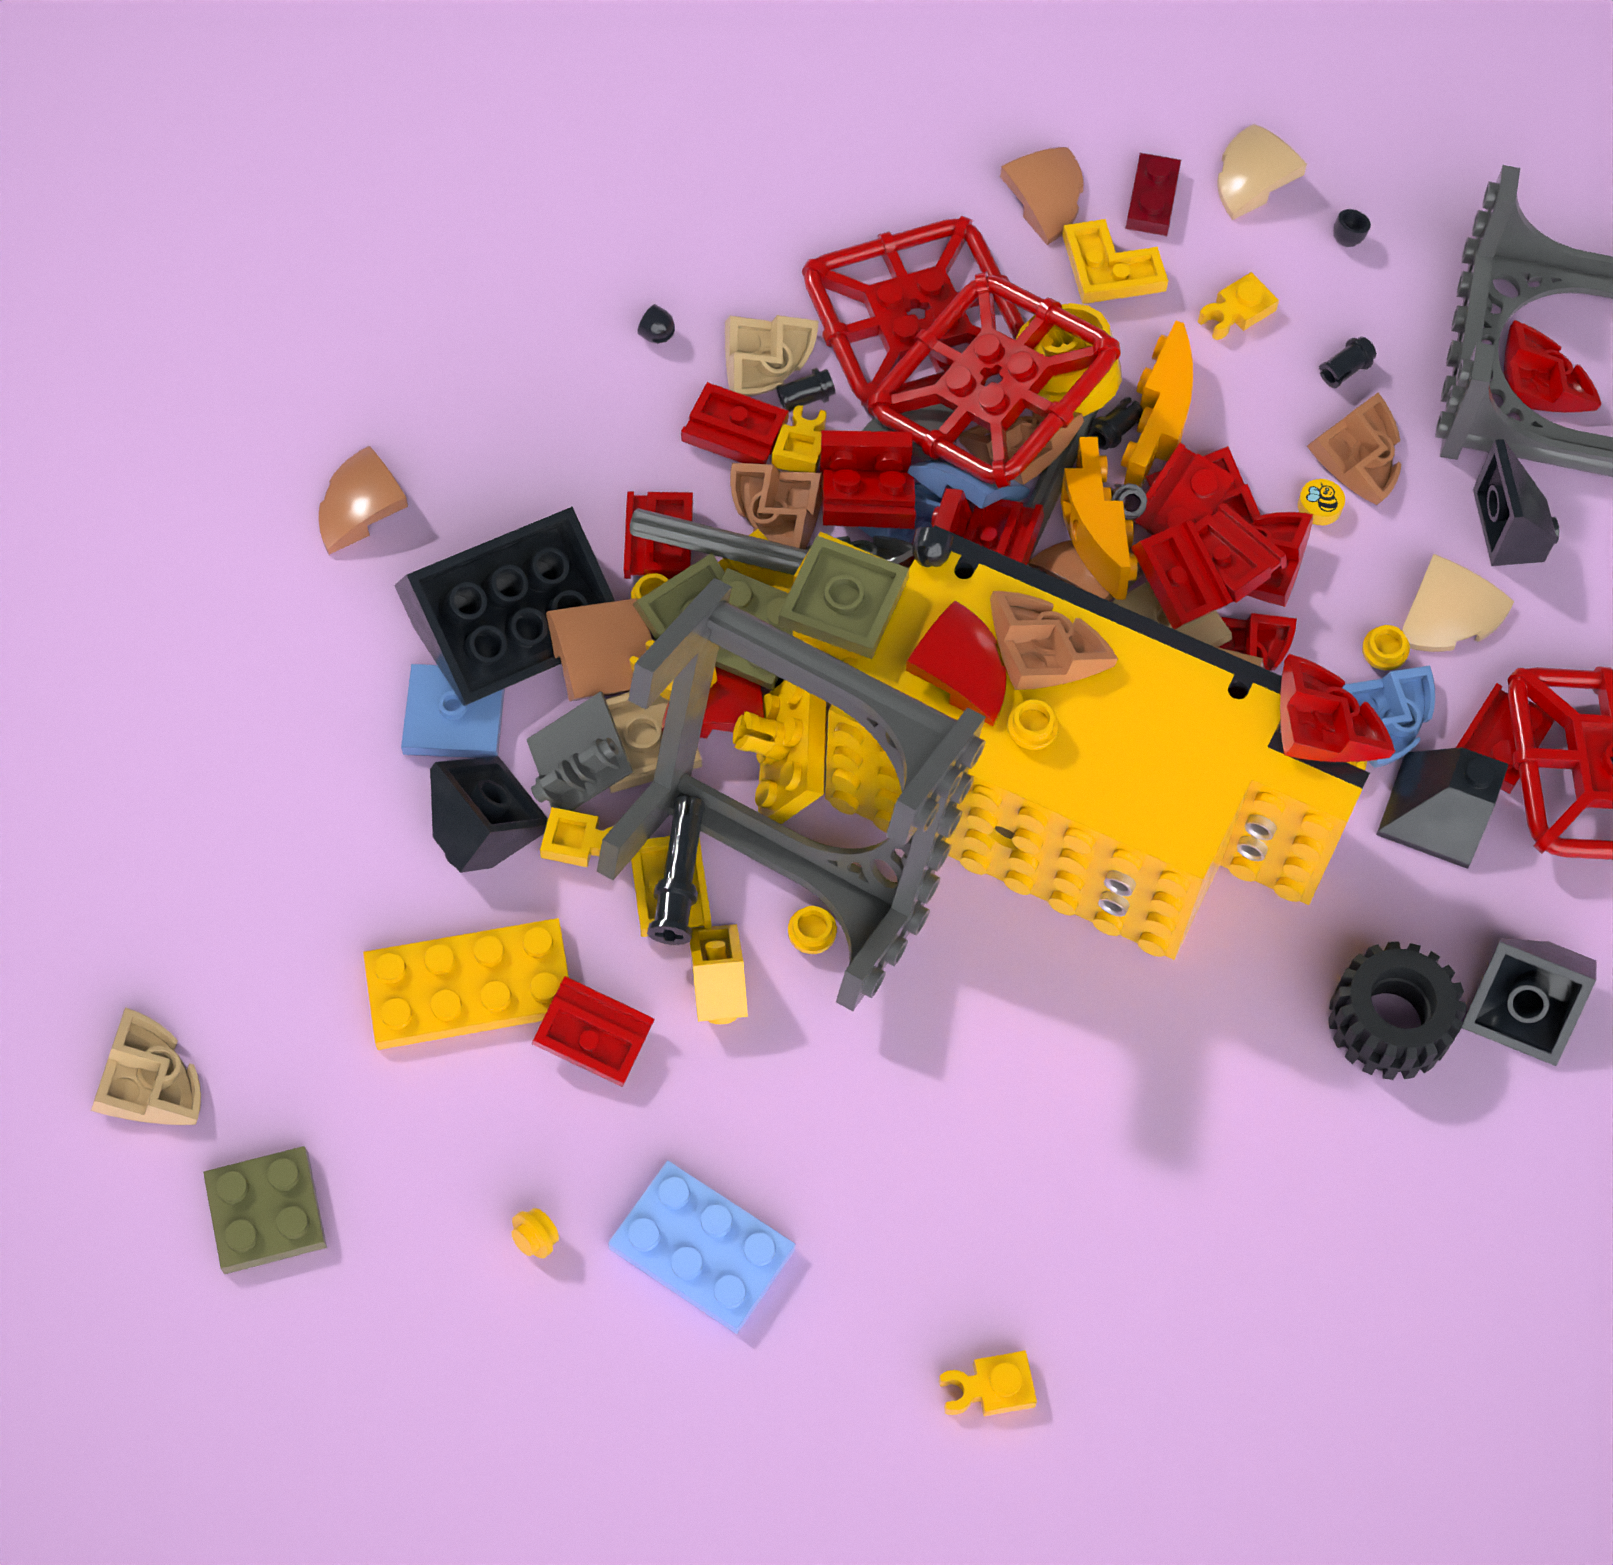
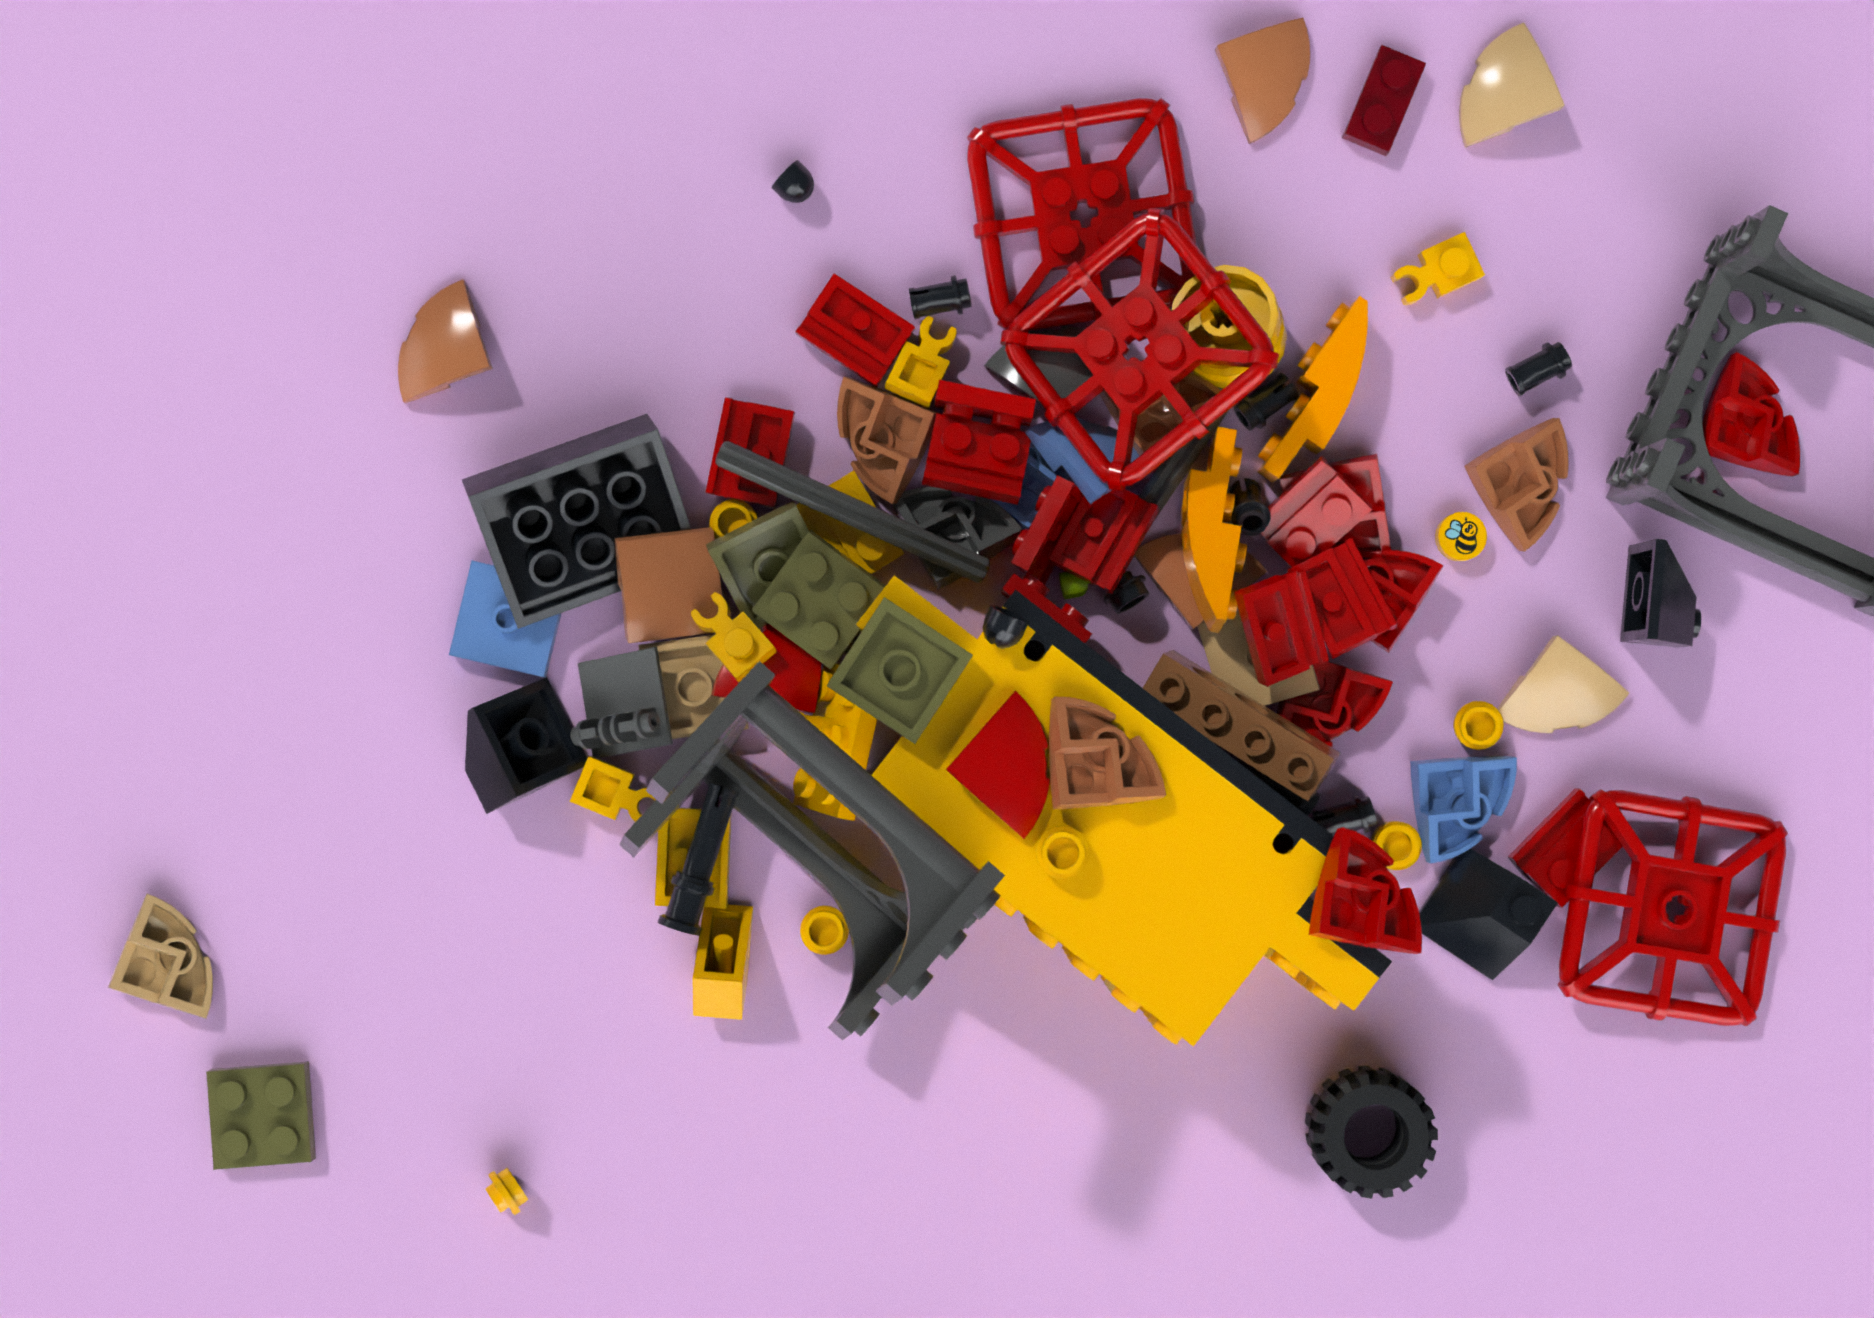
camera: 10 degrees right, 25 degrees up
(464, 983) = (482, 922): yellow plate -> none
(593, 1031) = (591, 1003): red plate -> none
(702, 1246) = (661, 1228): light blue plate -> none
(766, 352) = (905, 239): tan brick -> none
(1106, 274) = (1303, 205): yellow plate -> none
(1351, 227) = (1593, 192): black hinge -> none
(1531, 997) = (1512, 1140): black slope -> none

